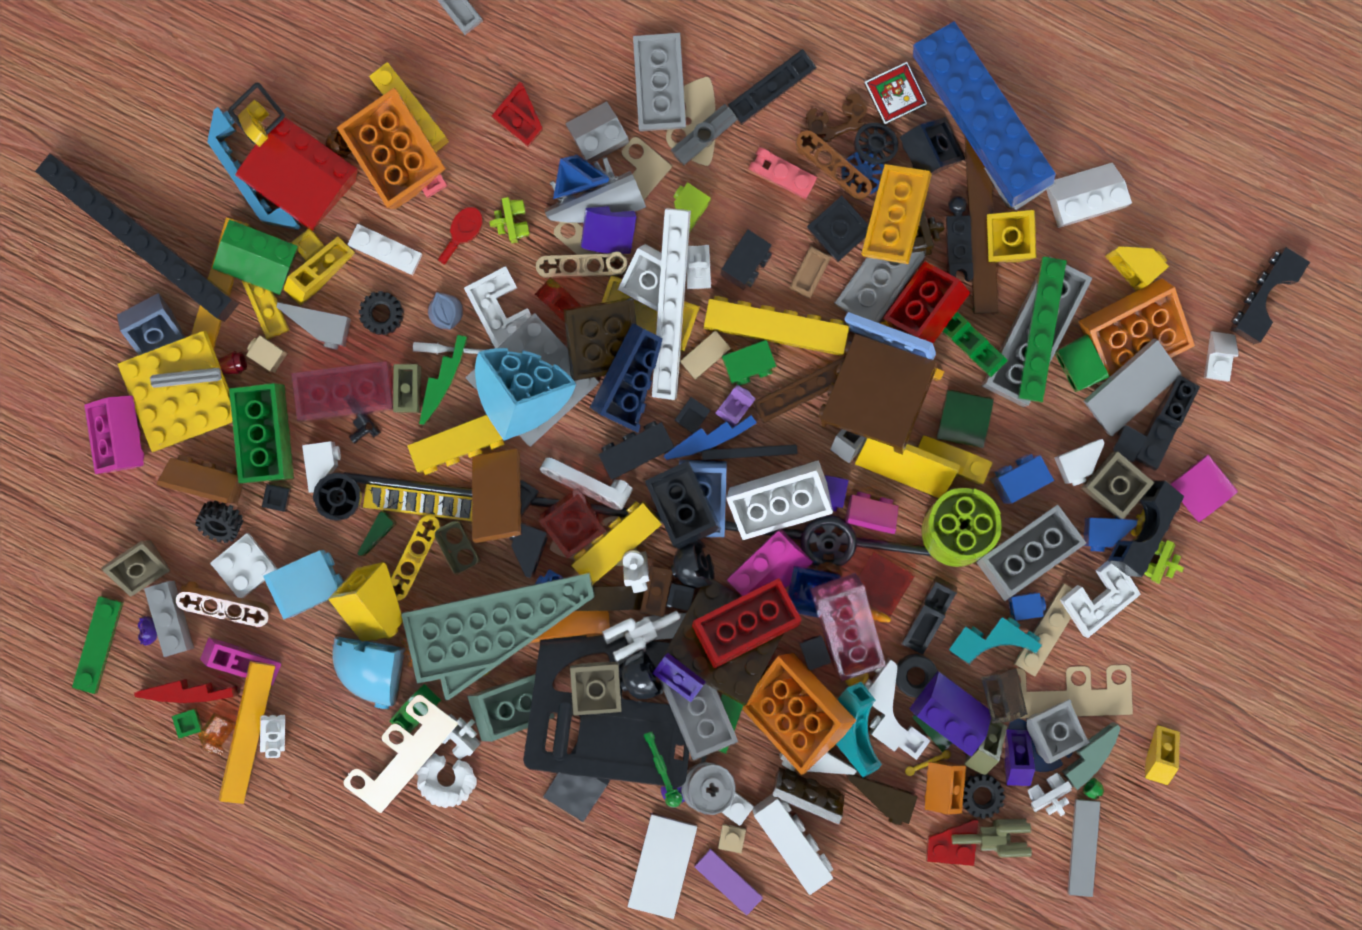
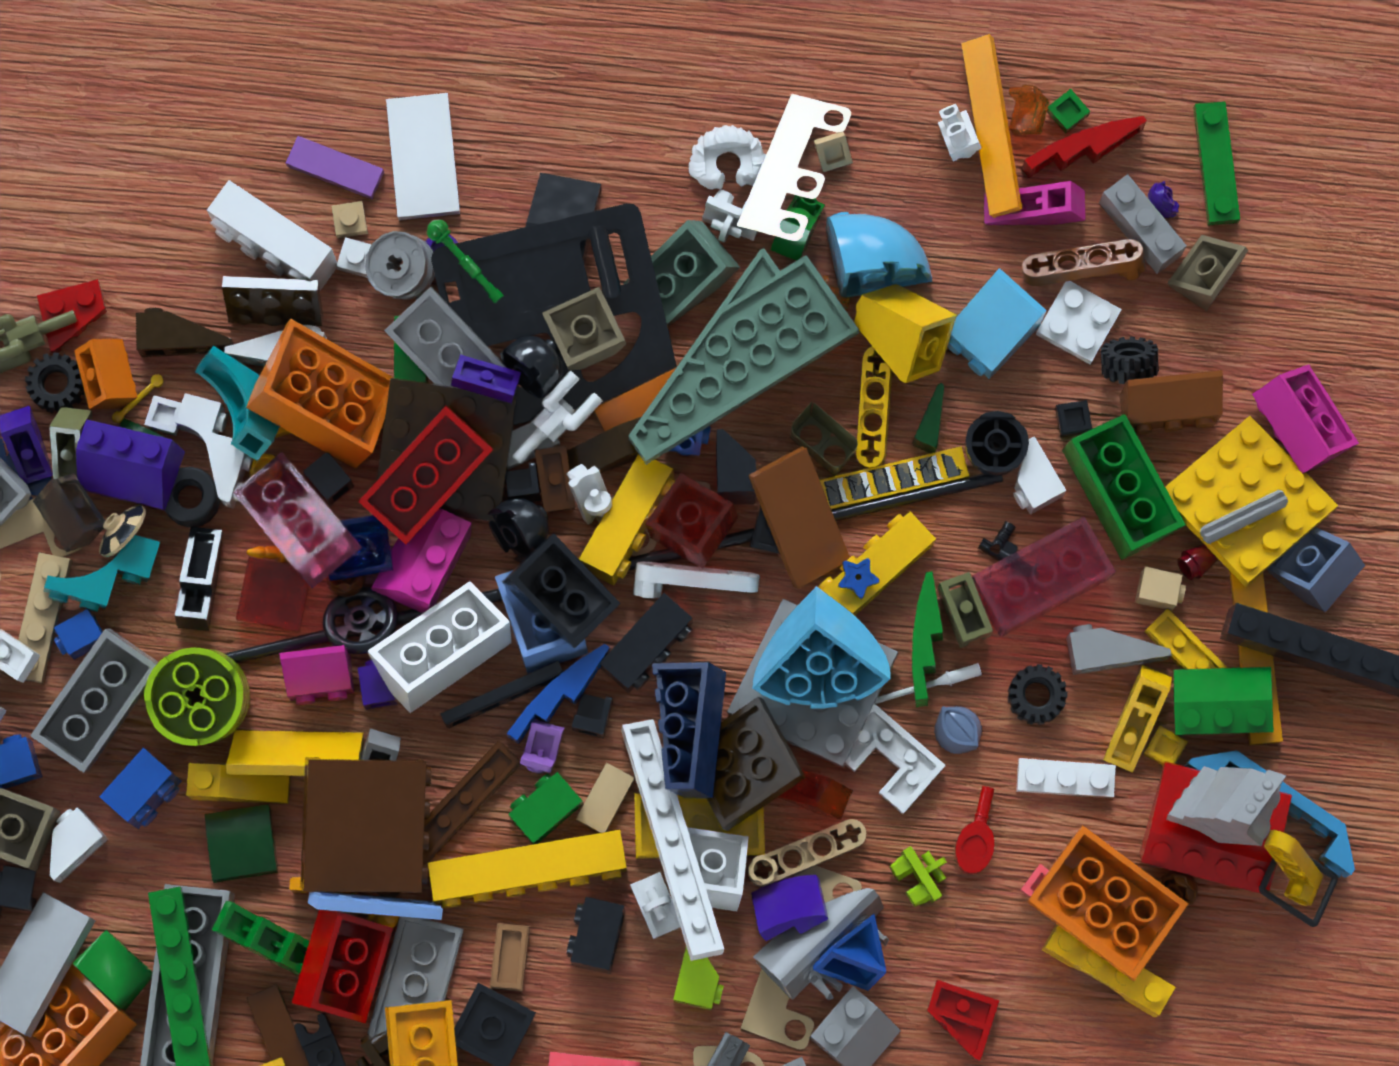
camera: 160 degrees right, 10 degrees down
(280, 177) = (1229, 804): none -> light grey slope
(367, 756) = (833, 151): none -> tan plate
(478, 437) = (858, 586): none -> blue plate
(972, 668) = (121, 529): none -> dish

